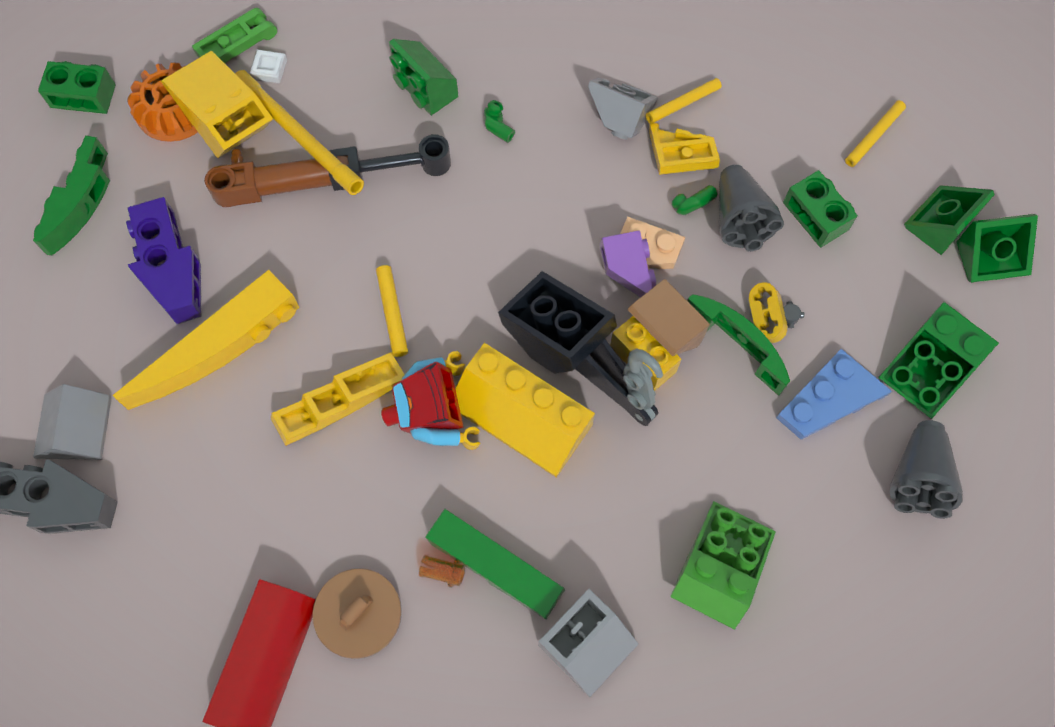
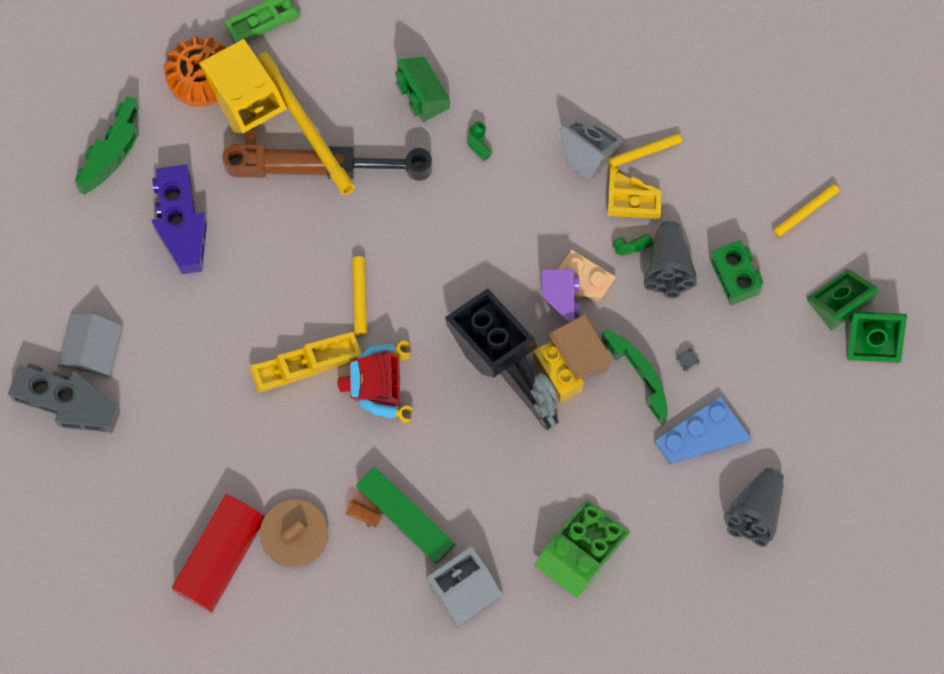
camera: 10 degrees right, 5 degrees up
(77, 87) = (117, 49): green brick -> none
(215, 342) = (216, 296): yellow slope -> none
(268, 66) = (288, 49): white tile -> none
(522, 409) = (449, 399): yellow slope -> none
(774, 311) = (670, 354): yellow beam -> none
(938, 360) = (796, 419): green slope -> none

